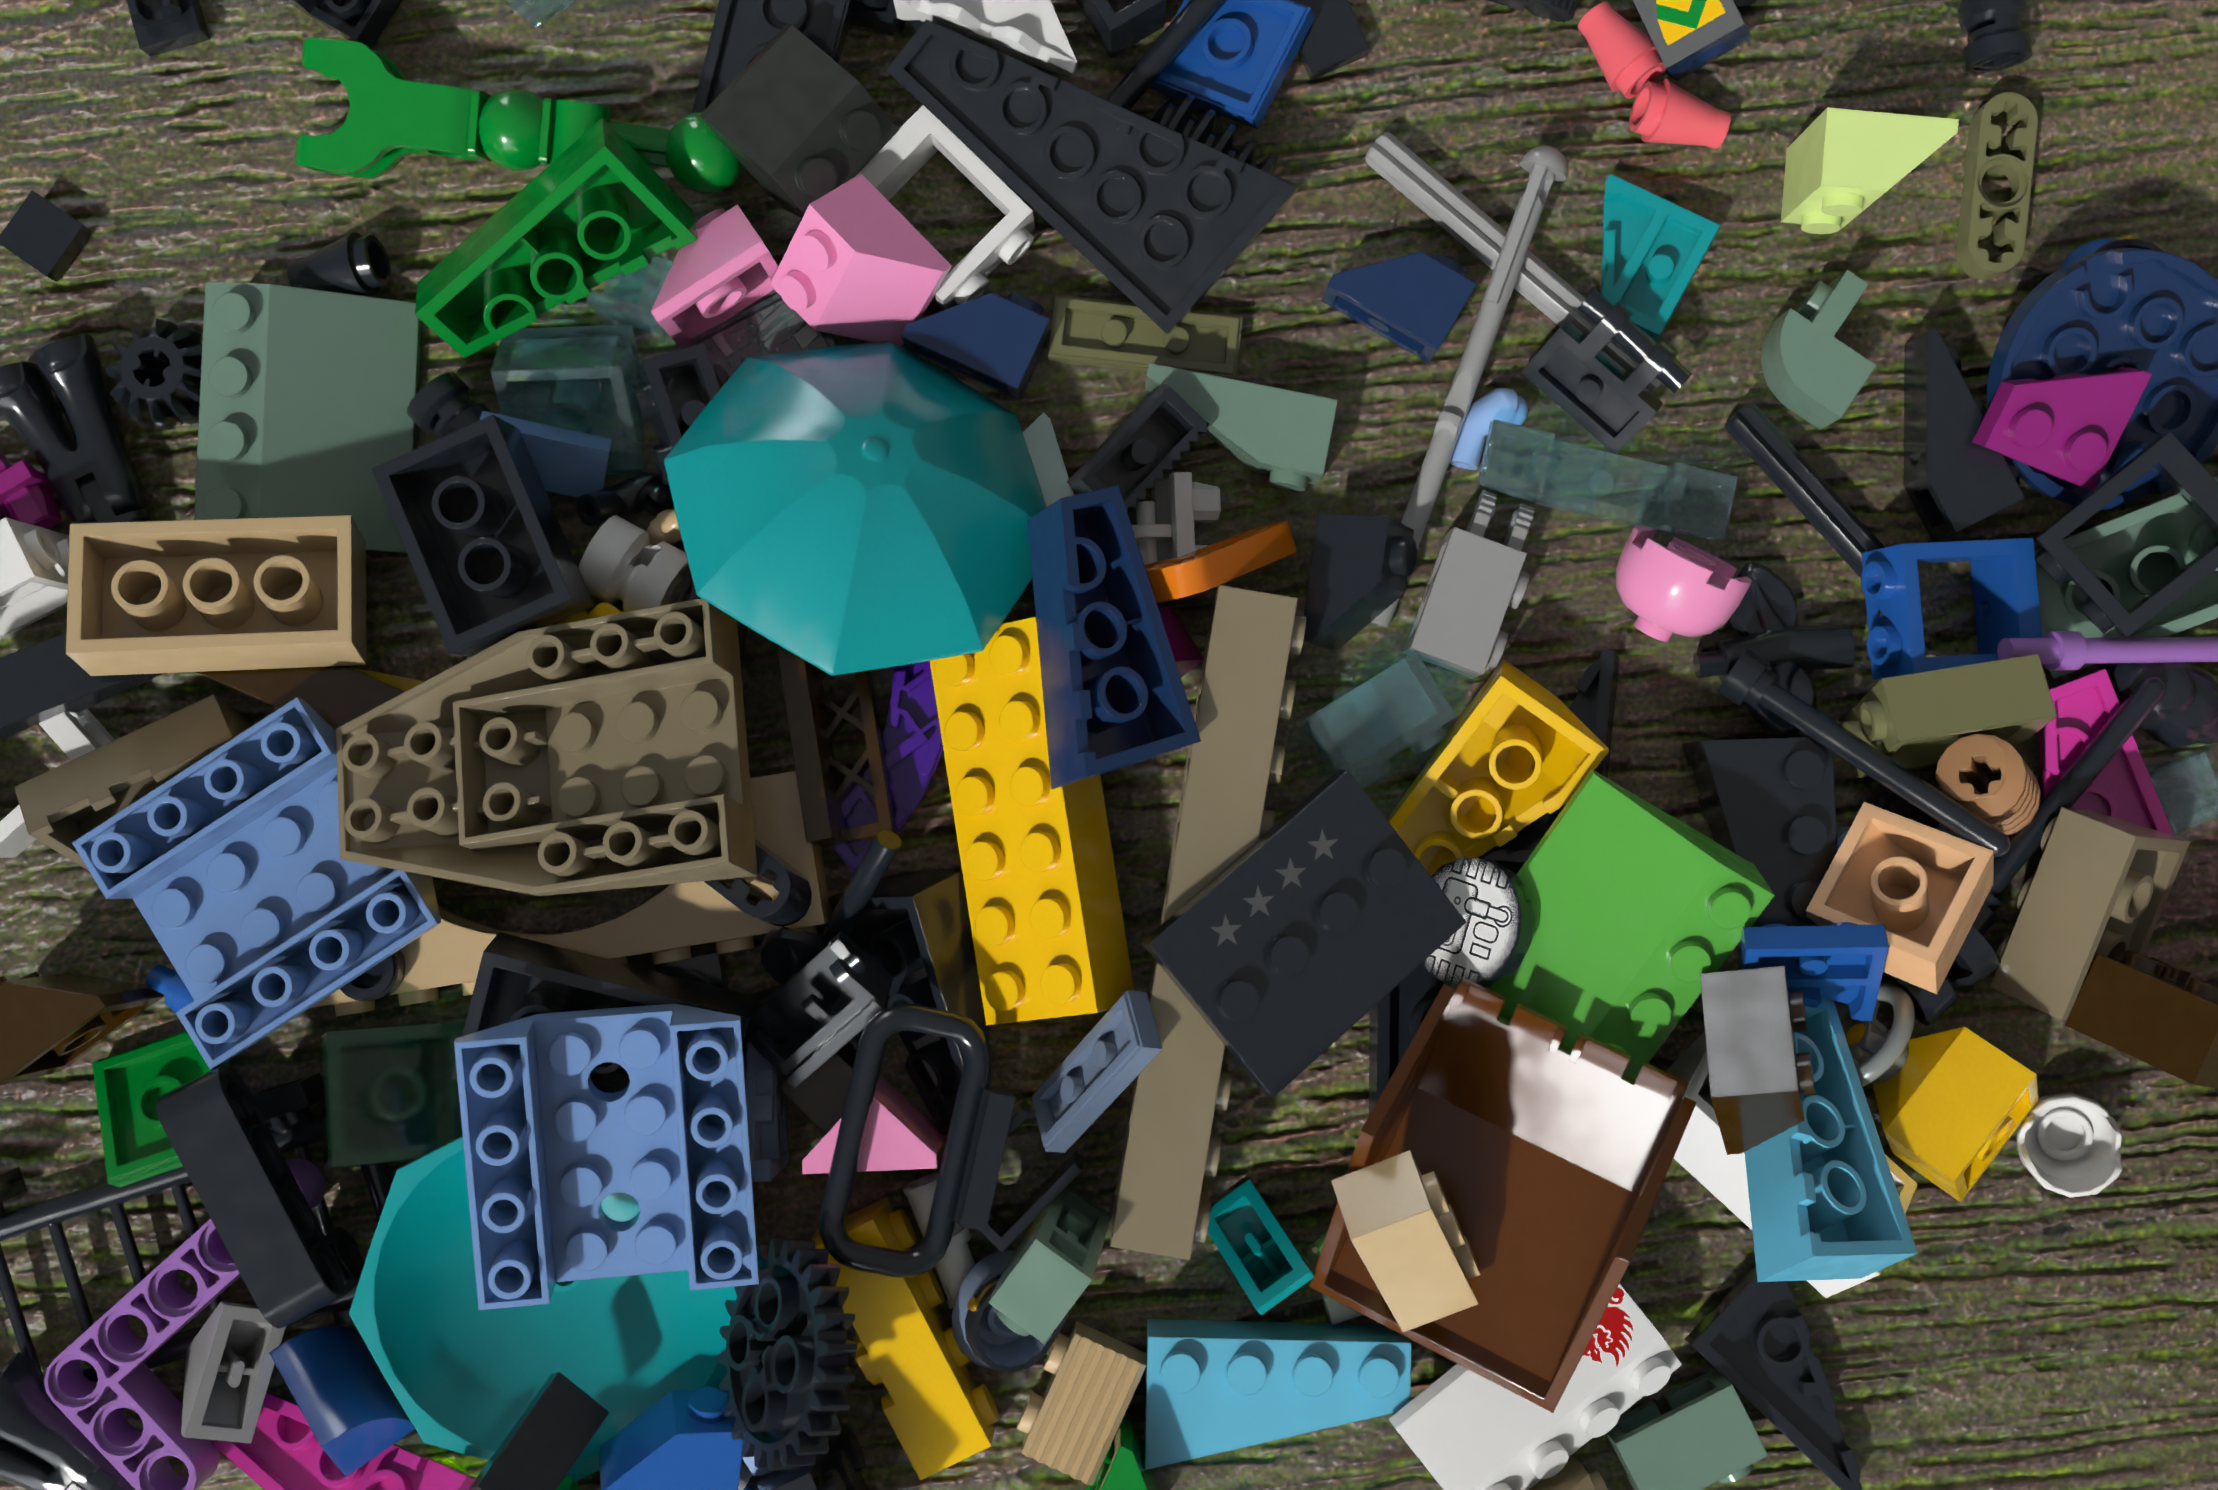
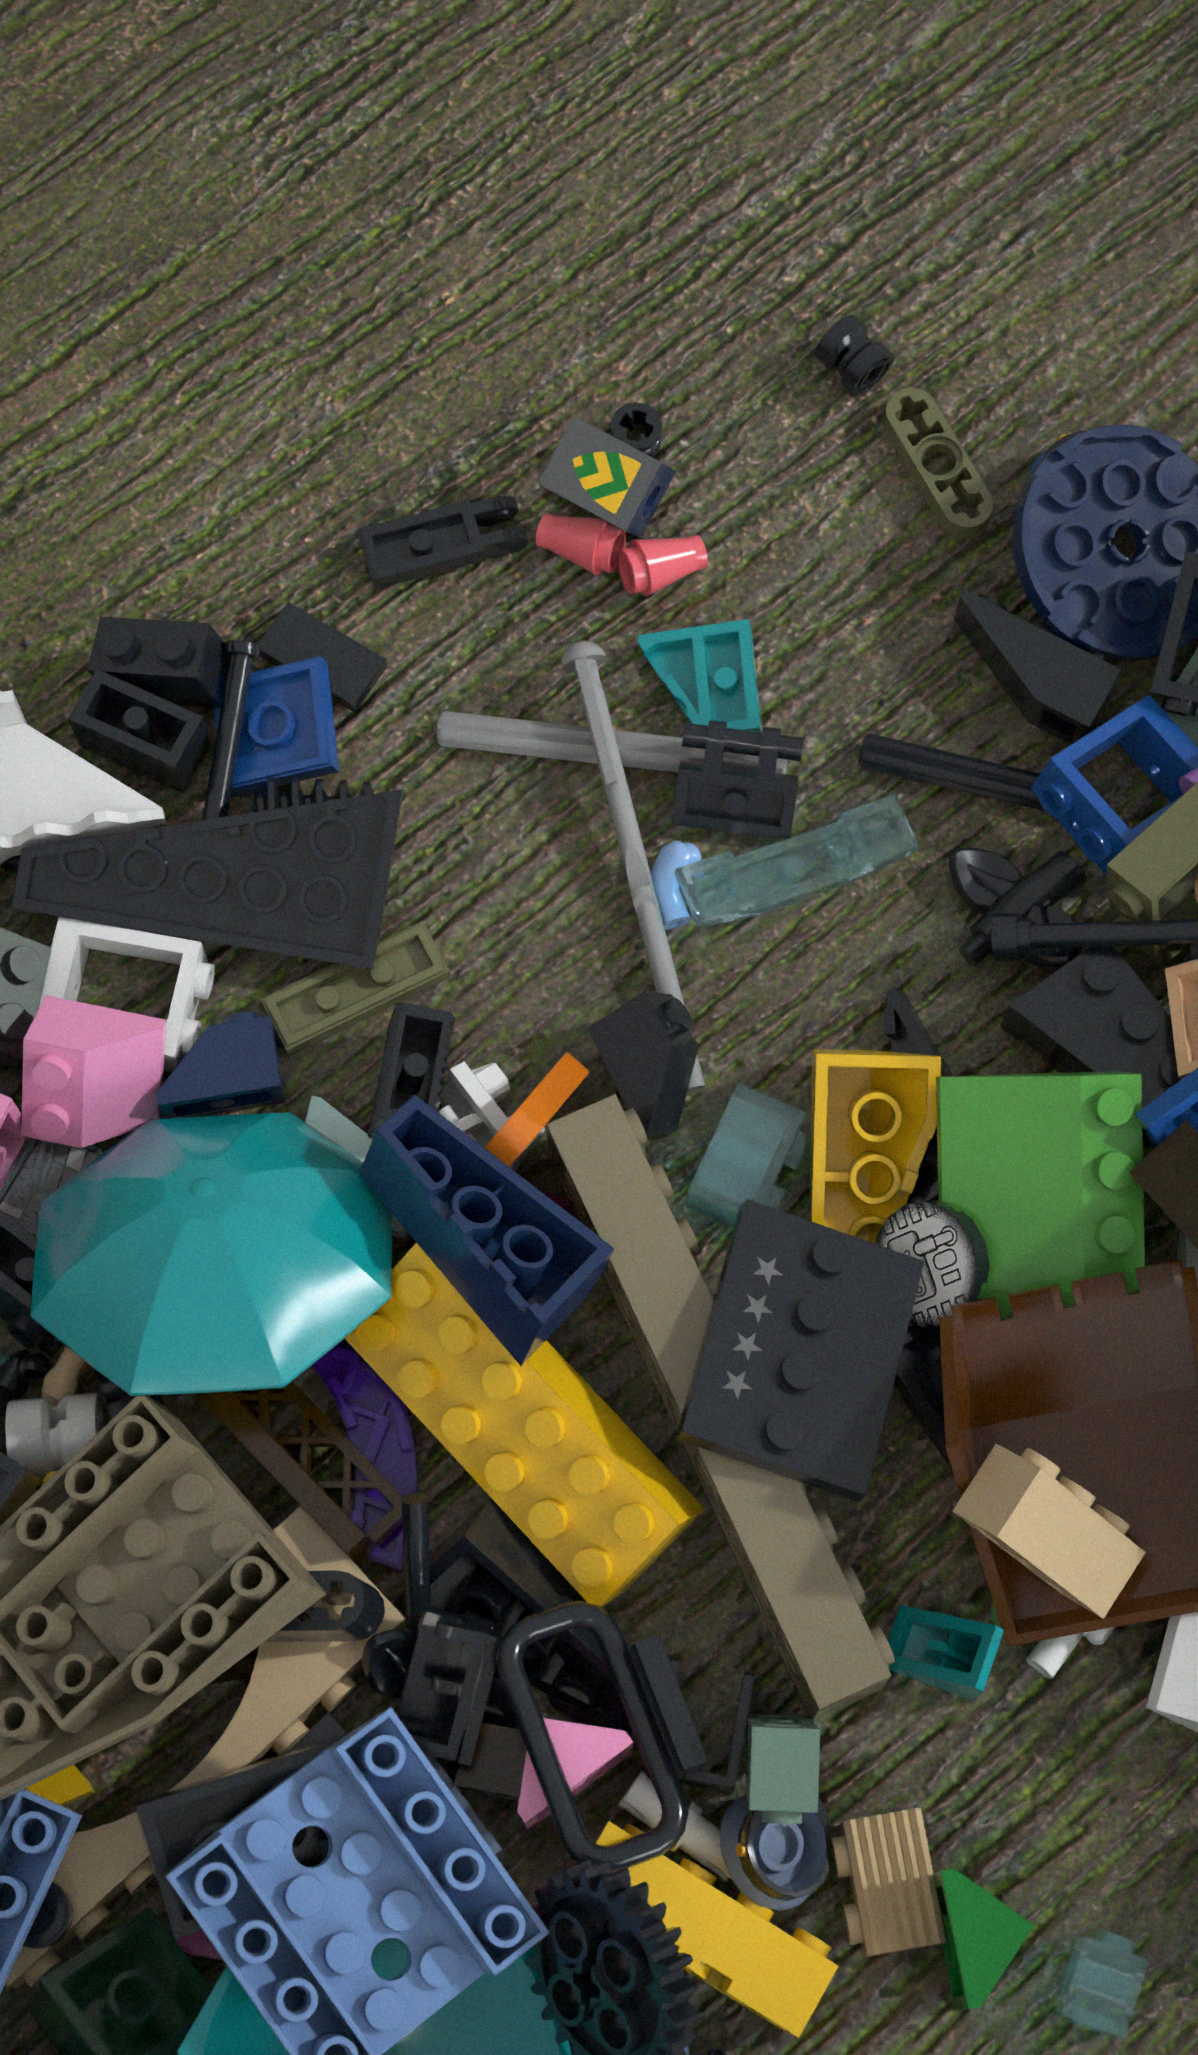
camera: 35 degrees left, 15 degrees down
(1096, 1071) = (711, 1584): sand blue tile -> none
(1260, 425) = (493, 994): sand green slope -> none
(1264, 1381) = (1013, 1770): medium azure wedge -> none
(1404, 299) = (541, 827): dark blue slope -> none
(1471, 592) = (751, 1015): light grey hinge -> none
(1676, 586) = (906, 906): bright pink cylinder -> none
(1805, 361) = (886, 677): sand green brick -> none
(1851, 161) = (815, 512): yellowish green slope -> none
(2063, 422) = (1106, 597): magenta wing -> none

